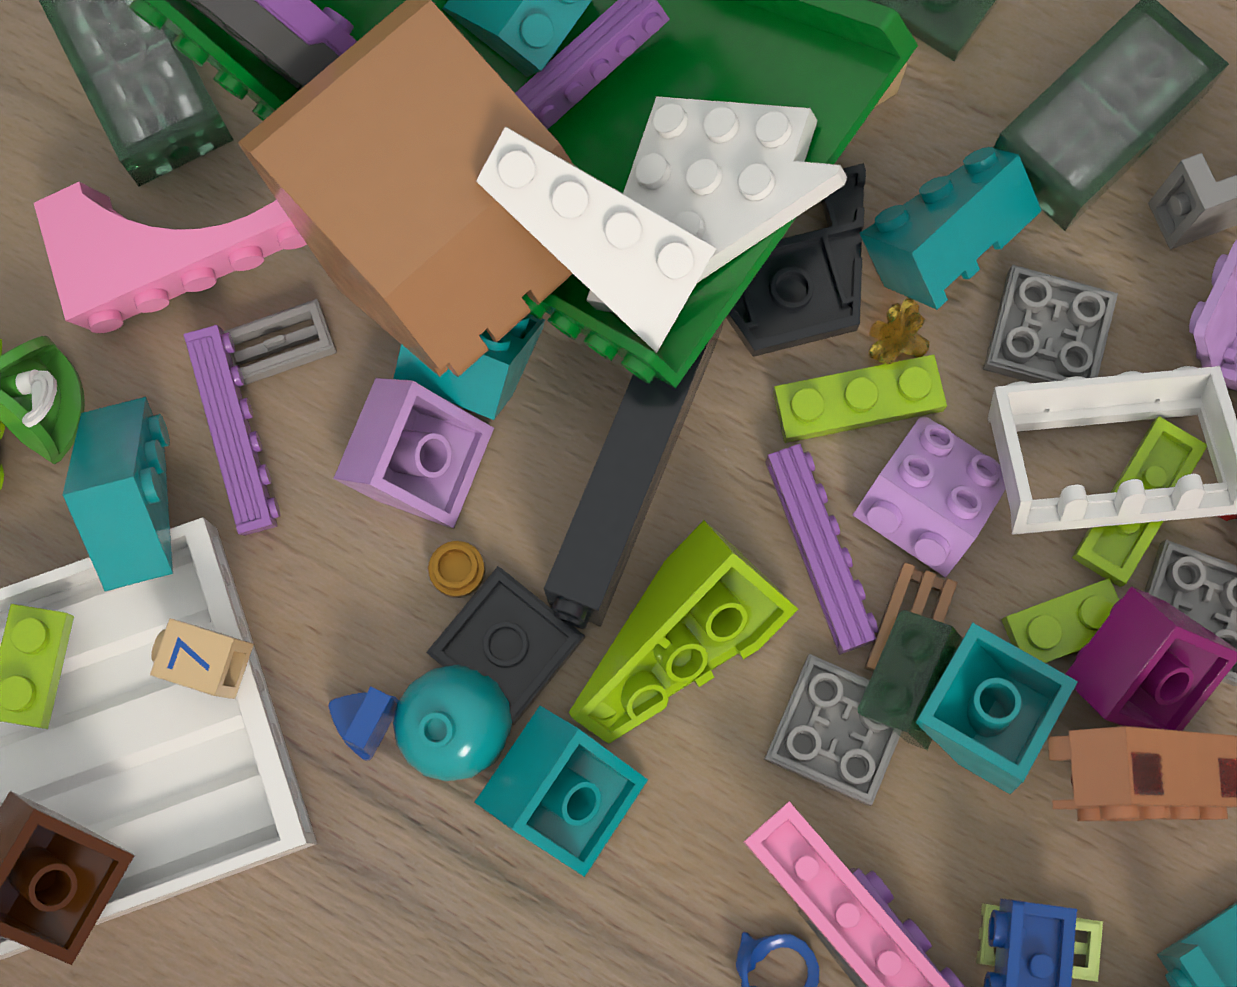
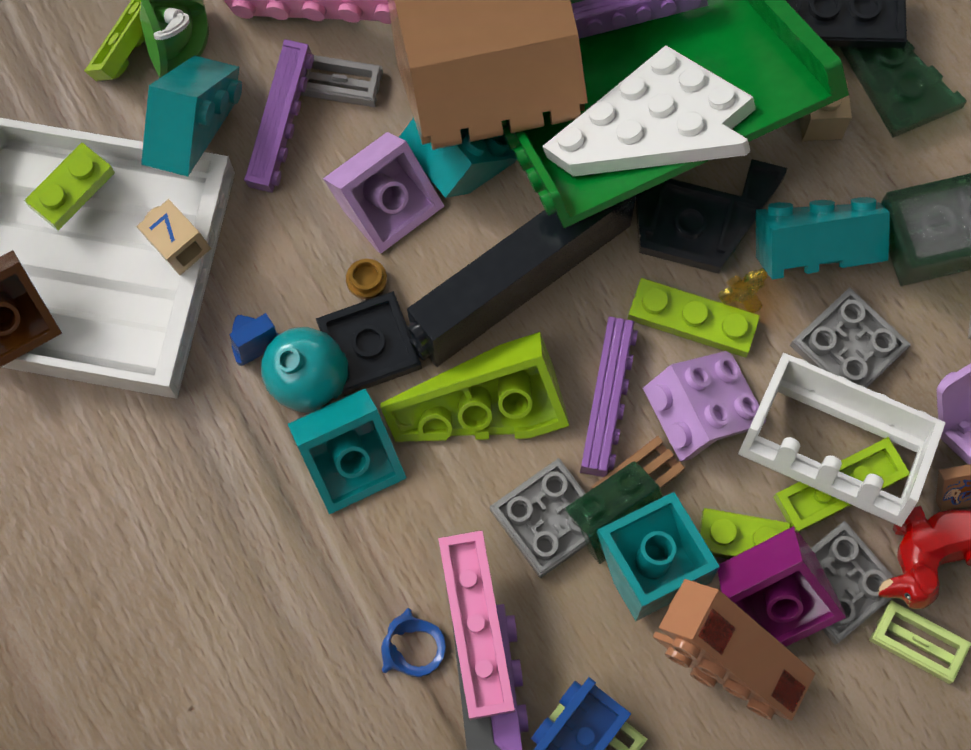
camera: 30 degrees right, 5 degrees down
(607, 240) = (573, 112): white wing -> none

